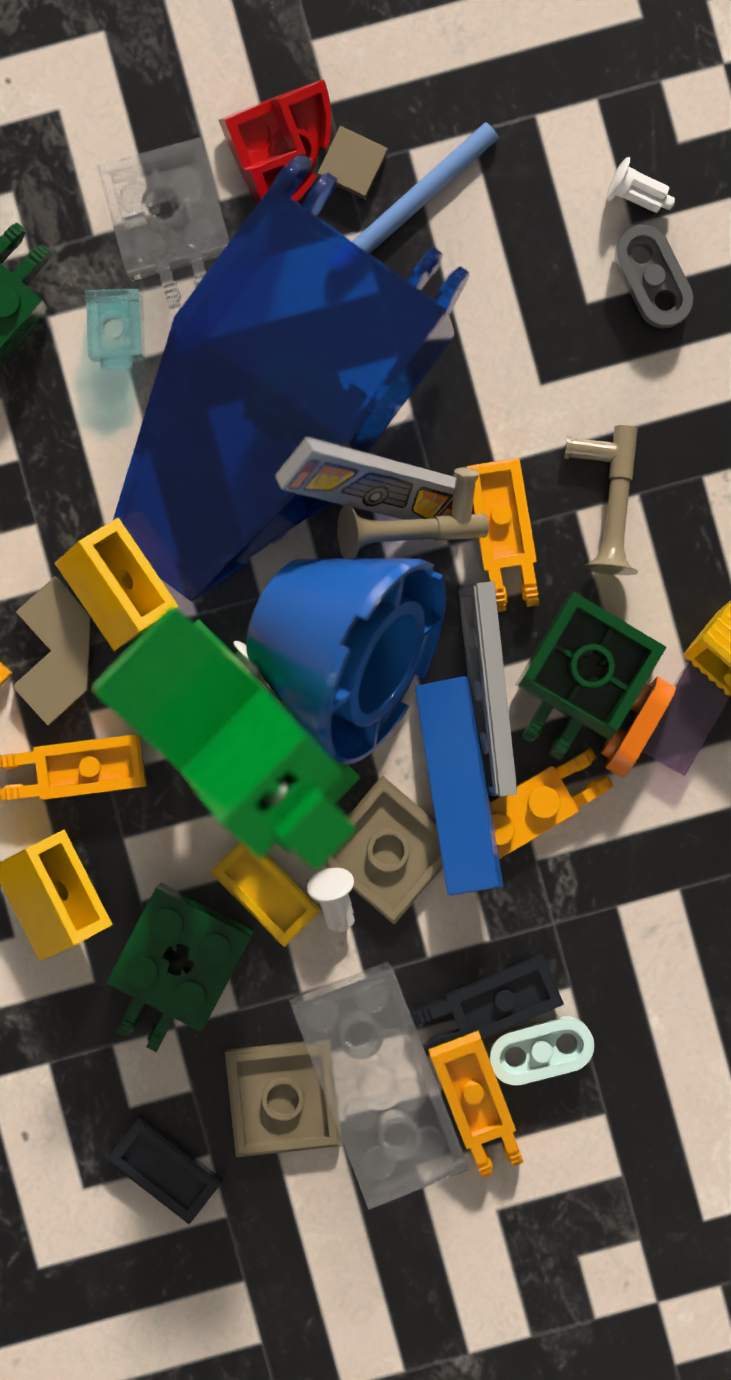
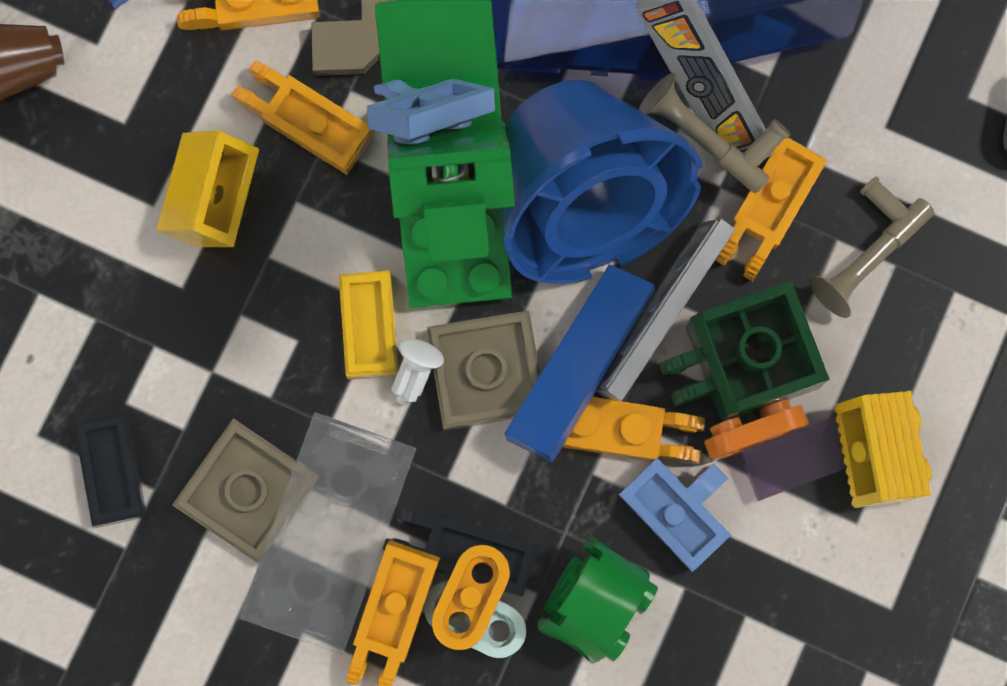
camera: 35 degrees right, 10 degrees down
(152, 979) = (229, 303): dark green hinge -> none
(209, 745) = (415, 112): none -> medium blue plate
(527, 1041) = (469, 597): none -> light orange plate
(625, 965) = (597, 602): none -> green brick
(628, 839) = (678, 511): none -> medium blue plate

